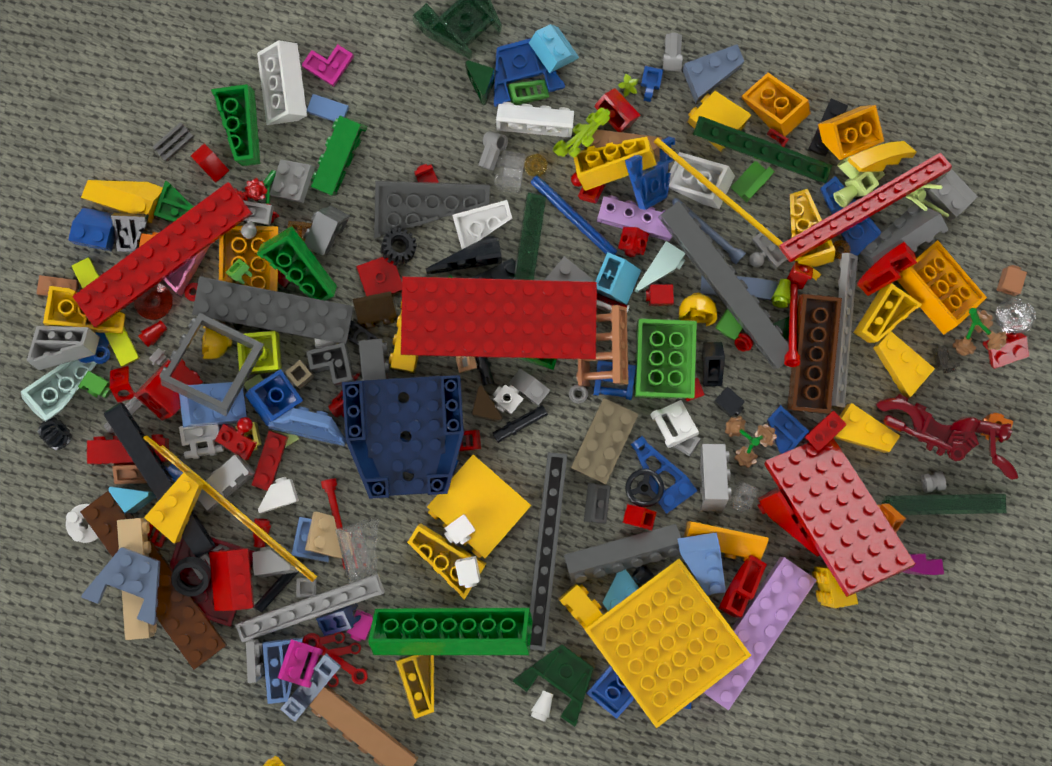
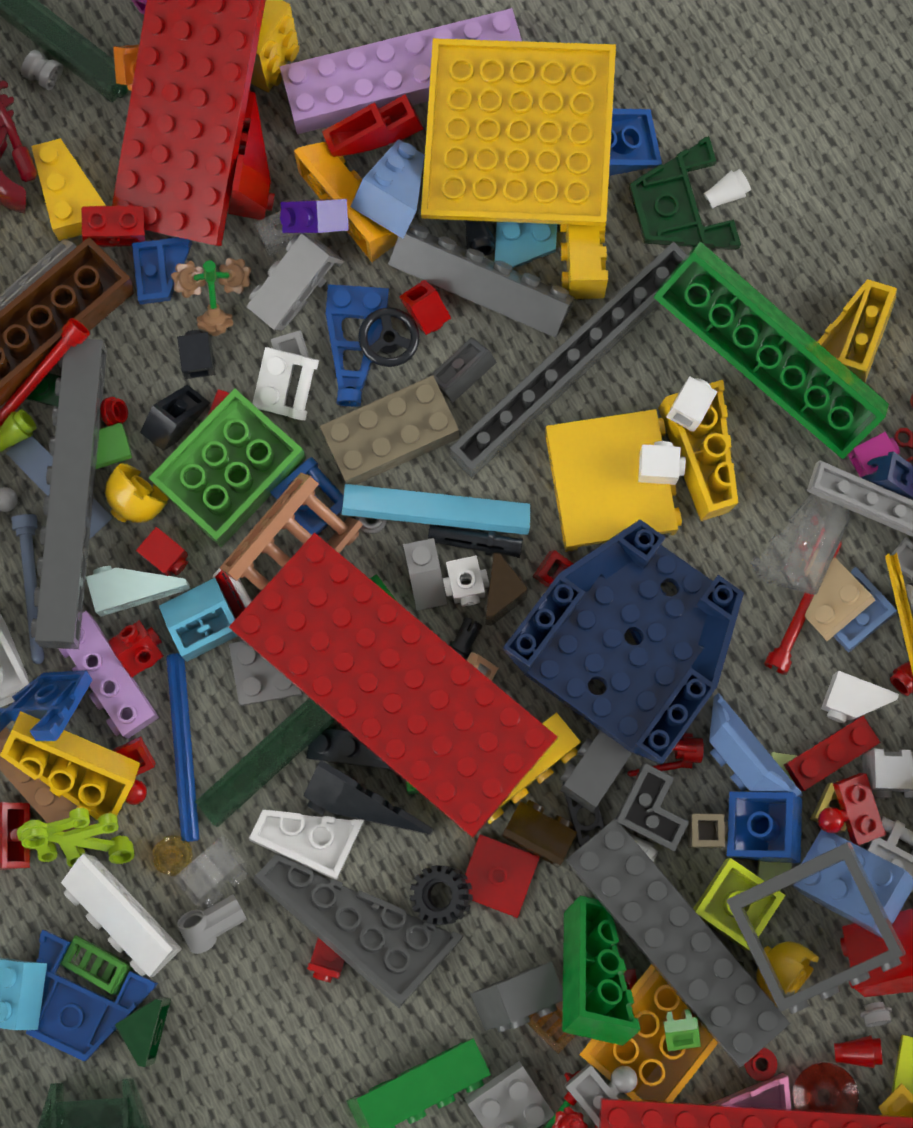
camera: 135 degrees left, 5 degrees down
(550, 422) = (436, 509): none -> medium azure tile
(729, 512) = (314, 216): none -> dark purple brick

